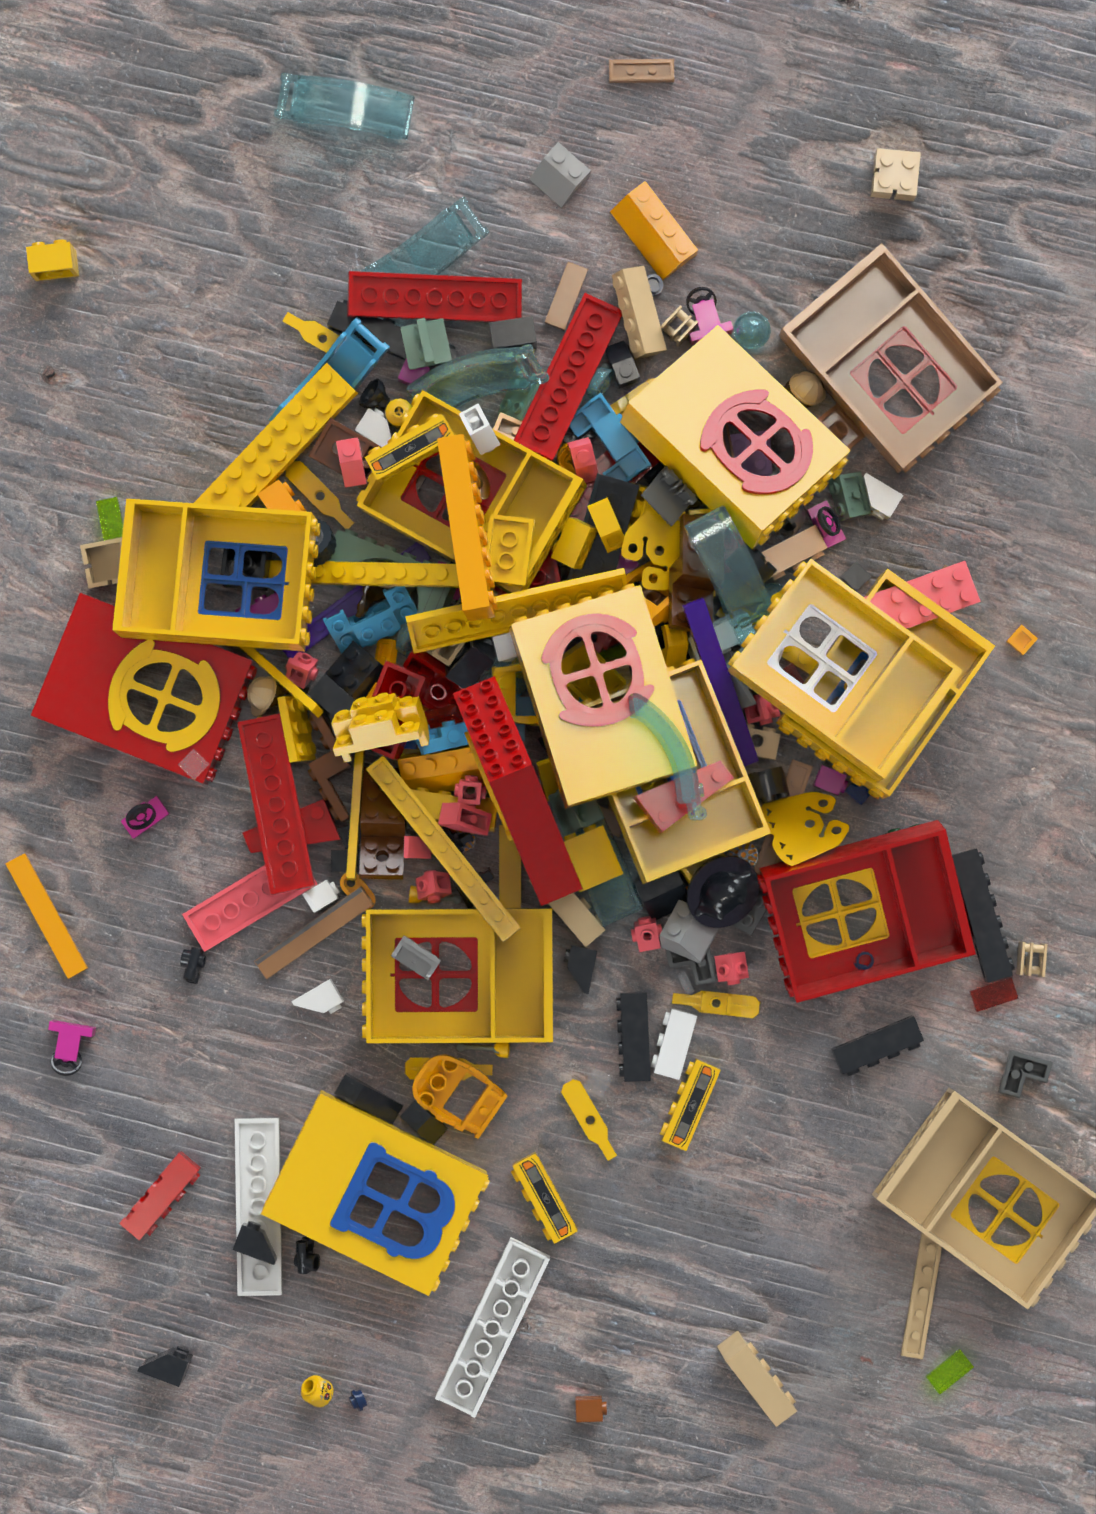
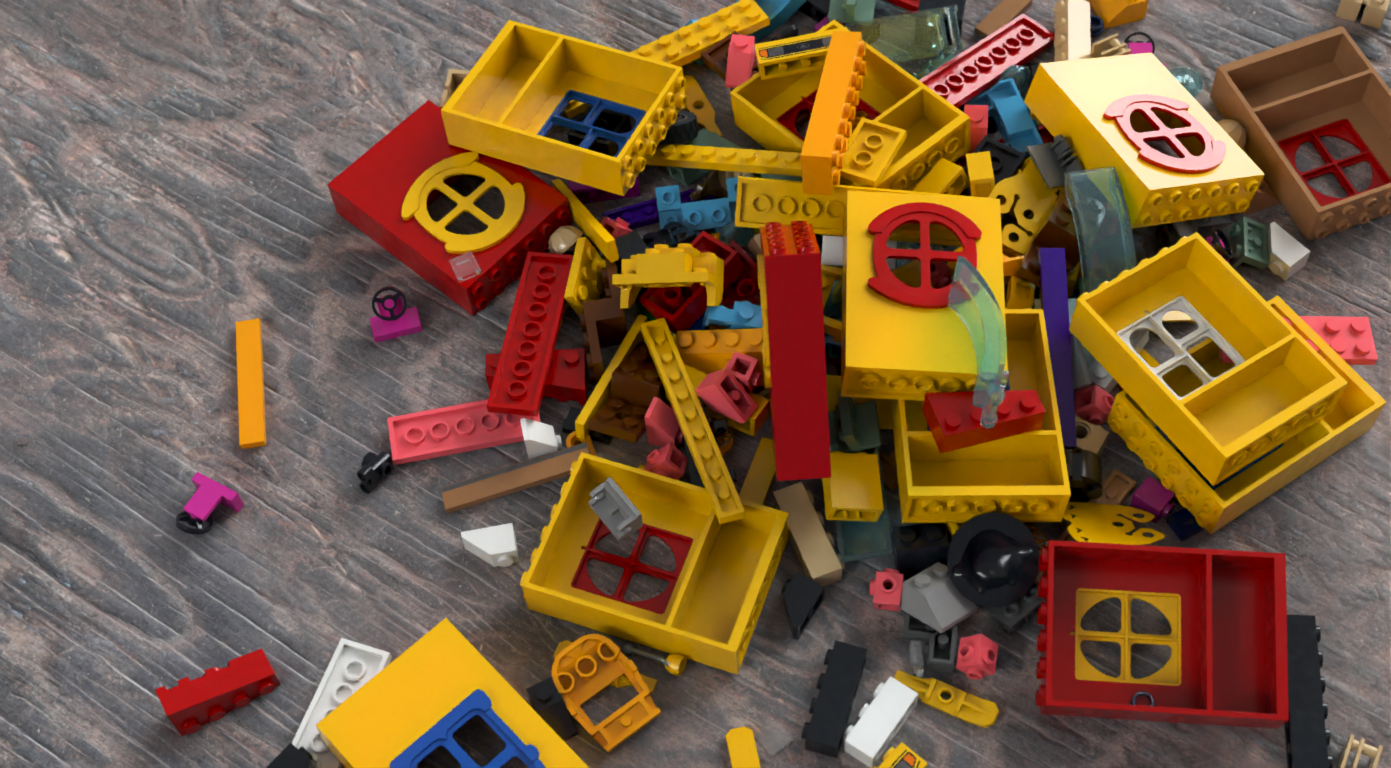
camera: 25 degrees right, 30 degrees down
(368, 1098) = (496, 654): black slope -> none
(479, 429) = (880, 54): white slope -> none

